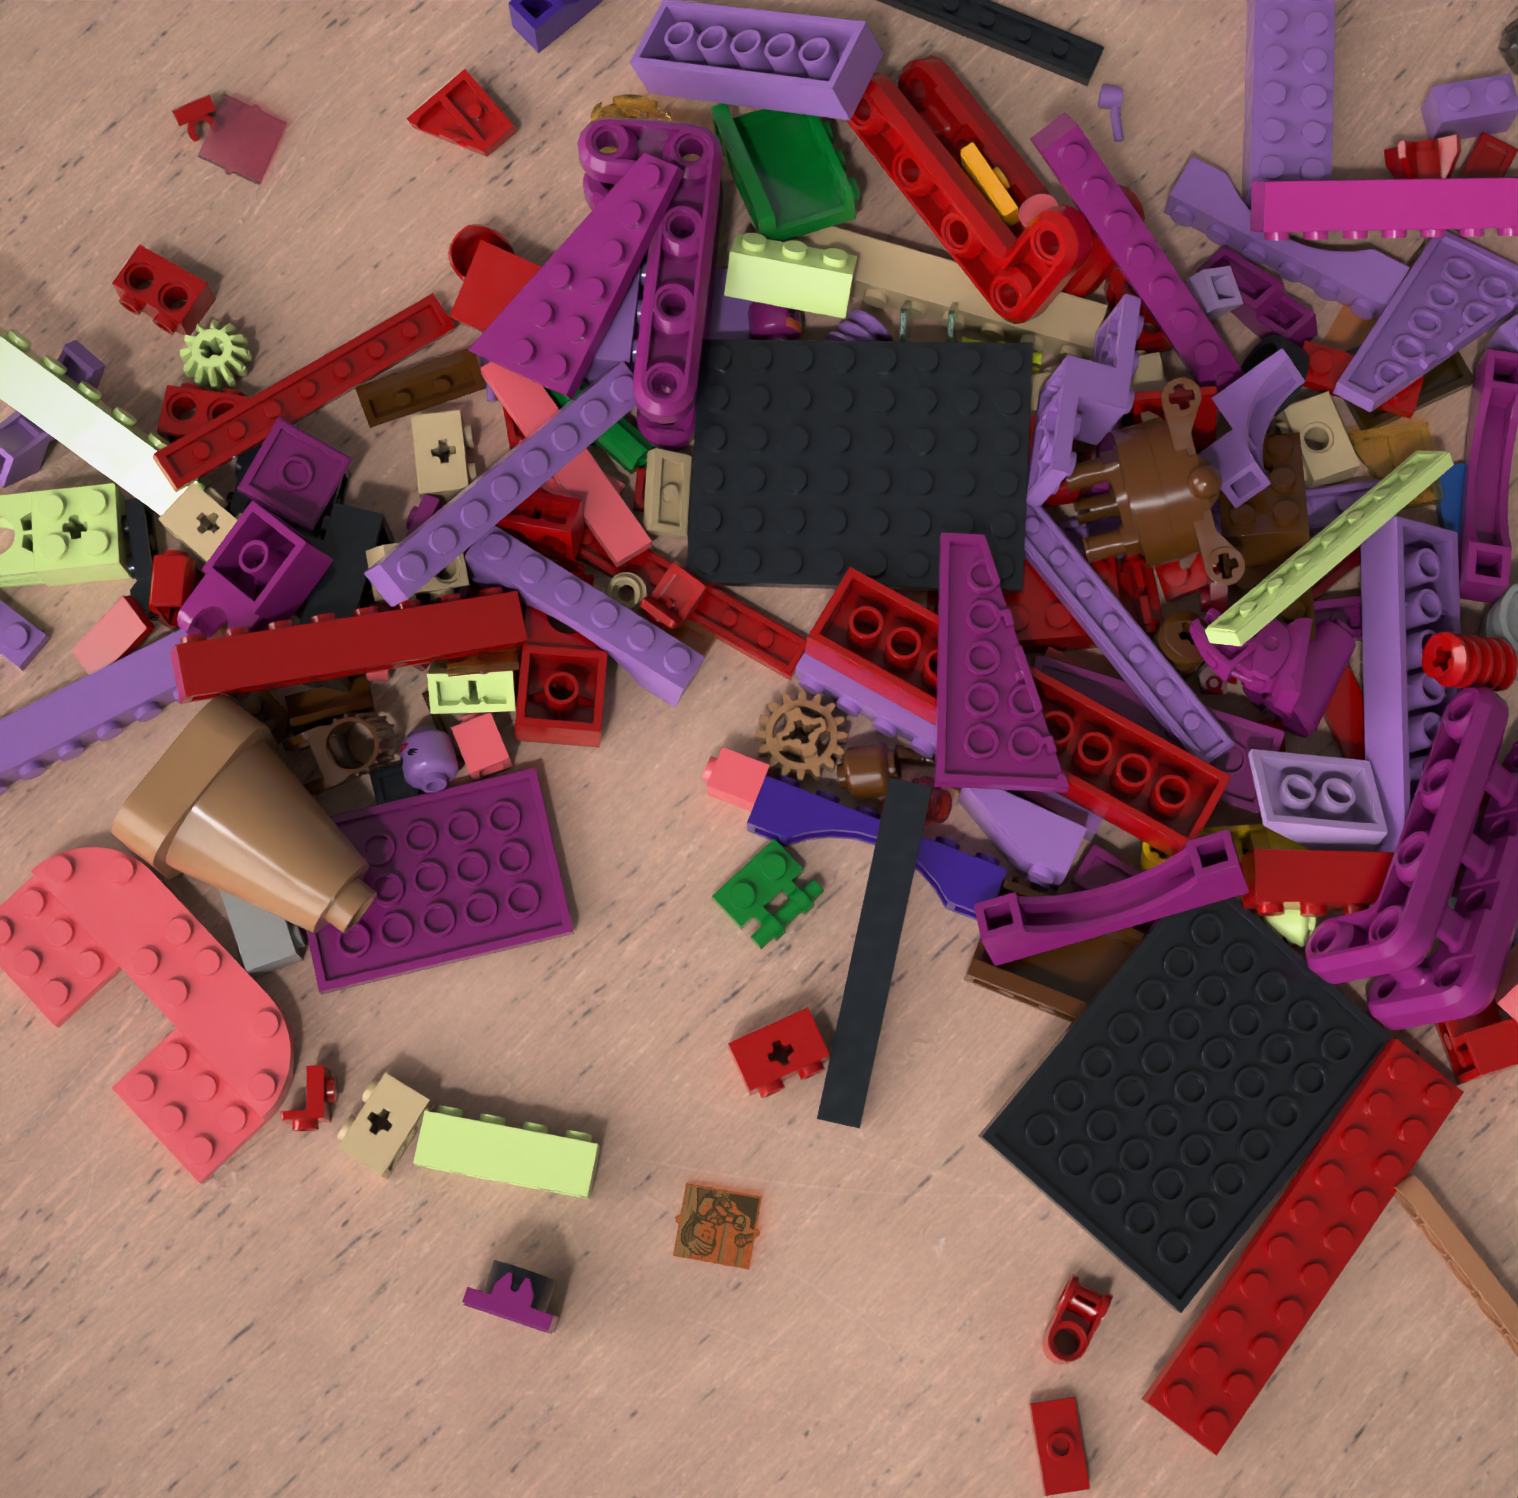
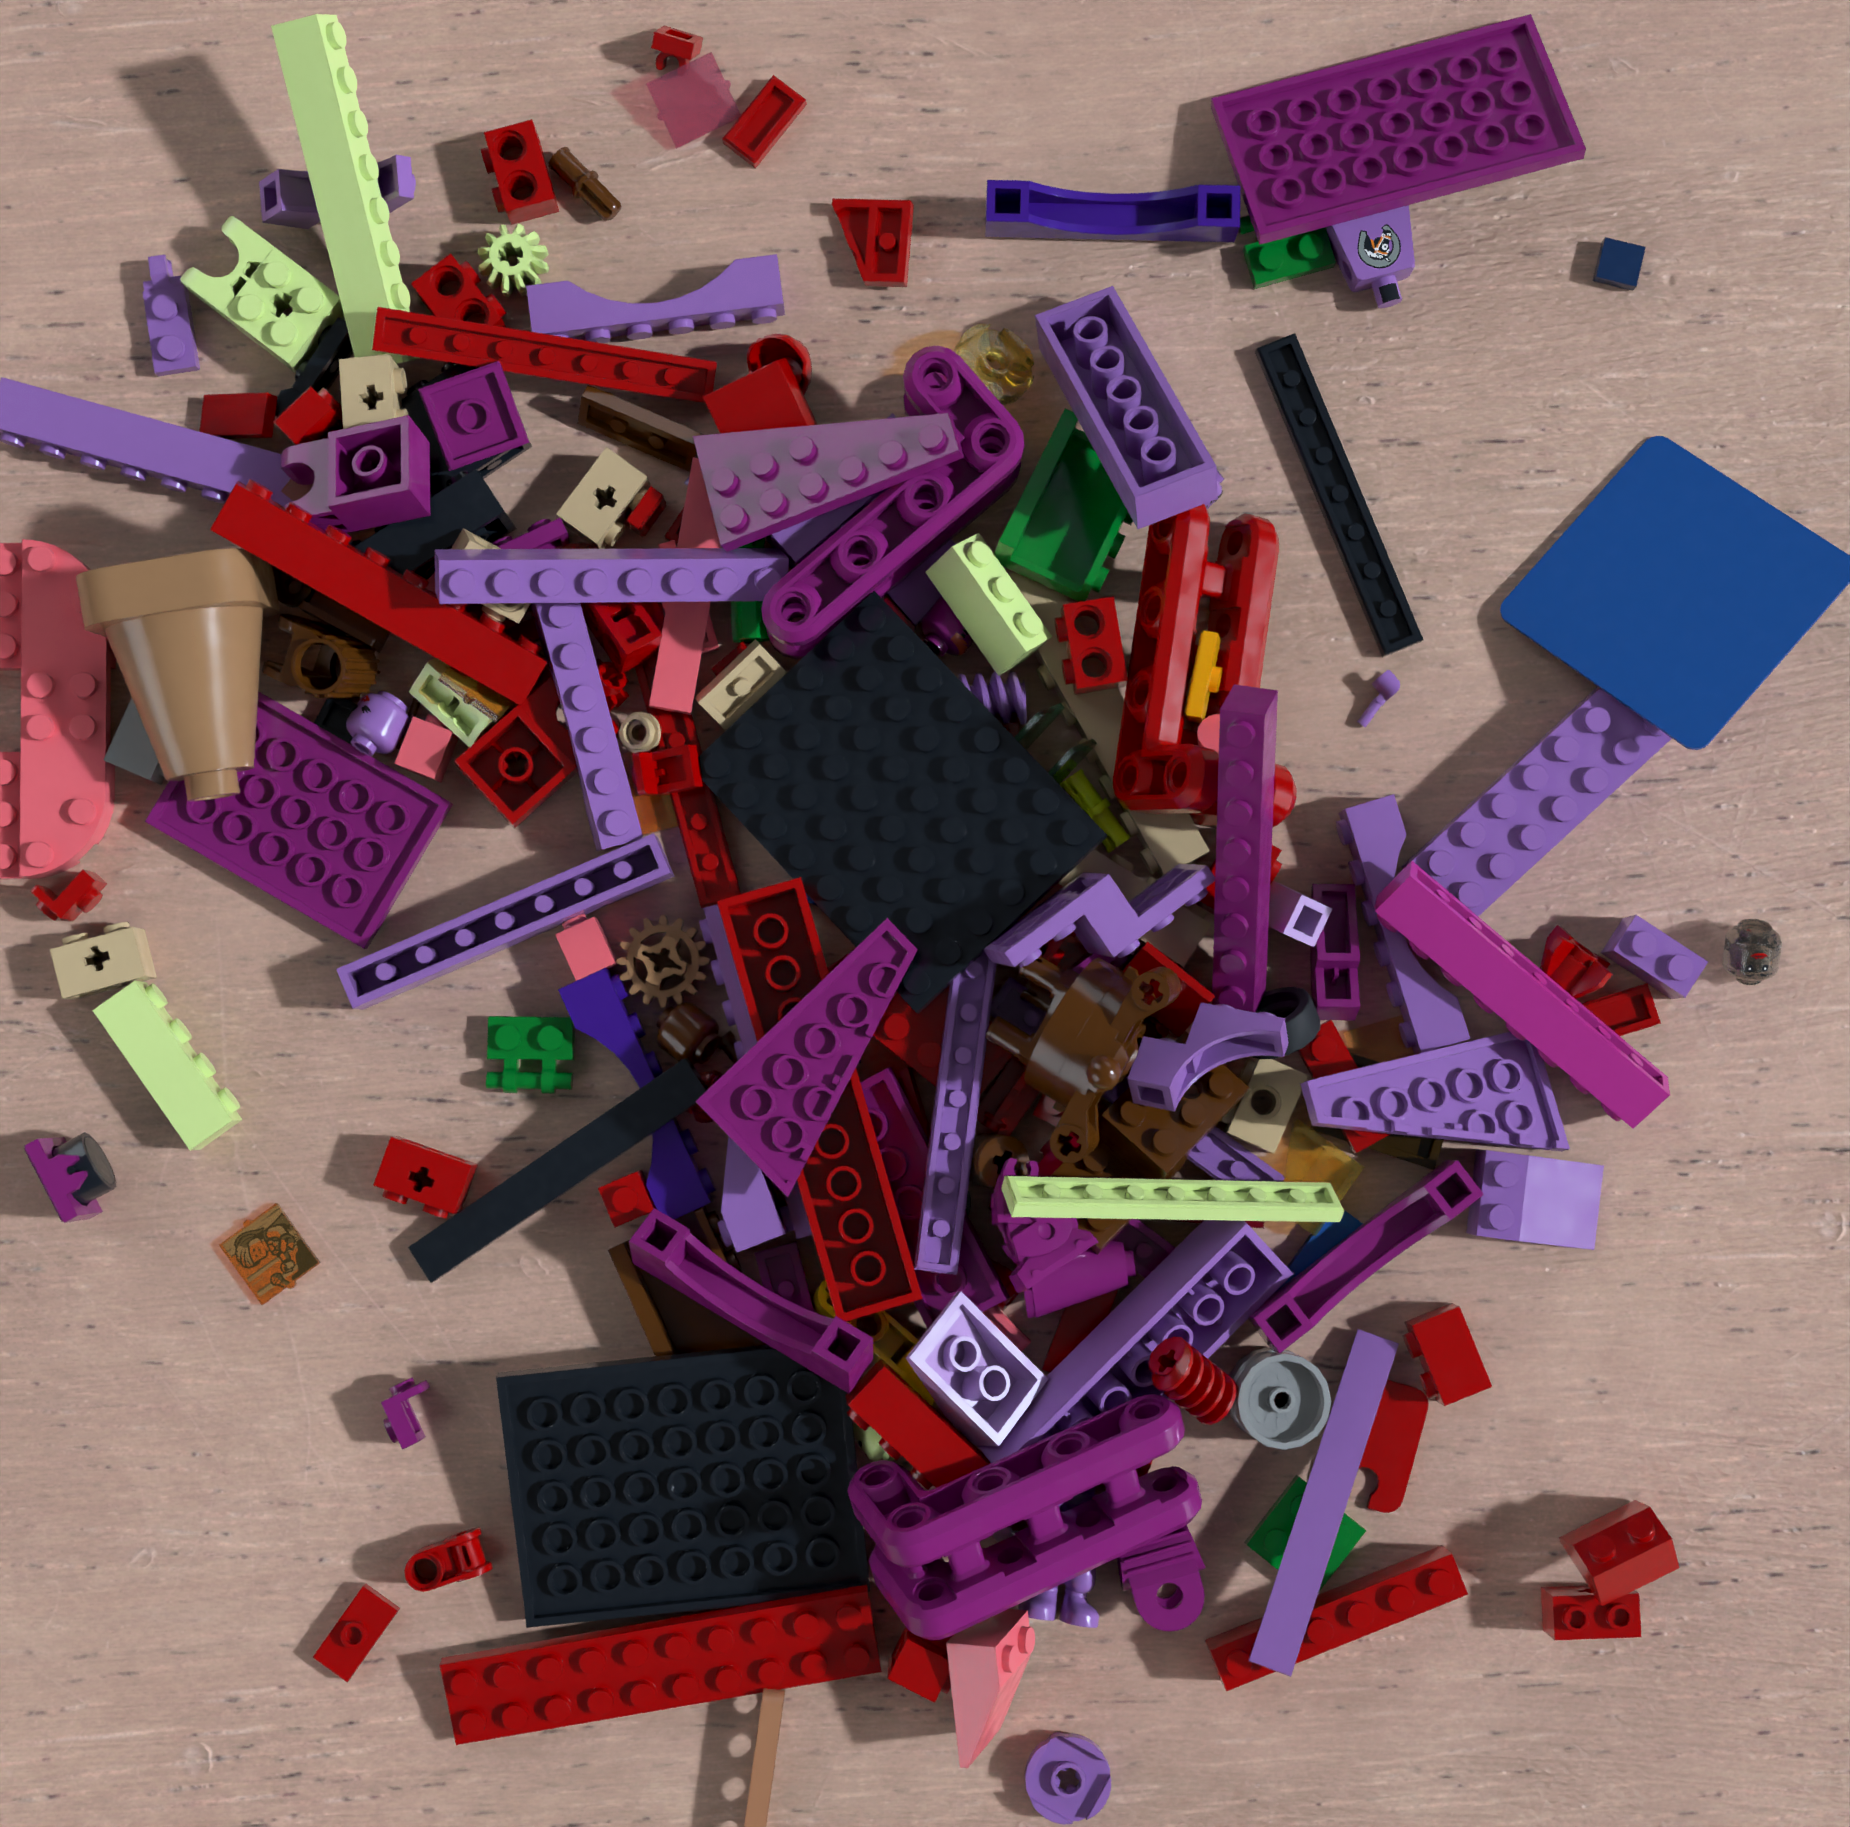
camera: 40 degrees right, 10 degrees up
(218, 261) = (584, 184): none -> reddish brown axle
(306, 112) = (764, 121): none -> red tile
(406, 231) = (741, 292): none -> medium lavender arch
(481, 439) = (646, 512): none -> red tile
(660, 813) = (505, 922): none -> medium lavender brick
(899, 230) = (1103, 645): none -> red brick
(938, 1251) = (401, 1421): none -> magenta bracket
(943, 926) = (627, 1198): none -> red brick

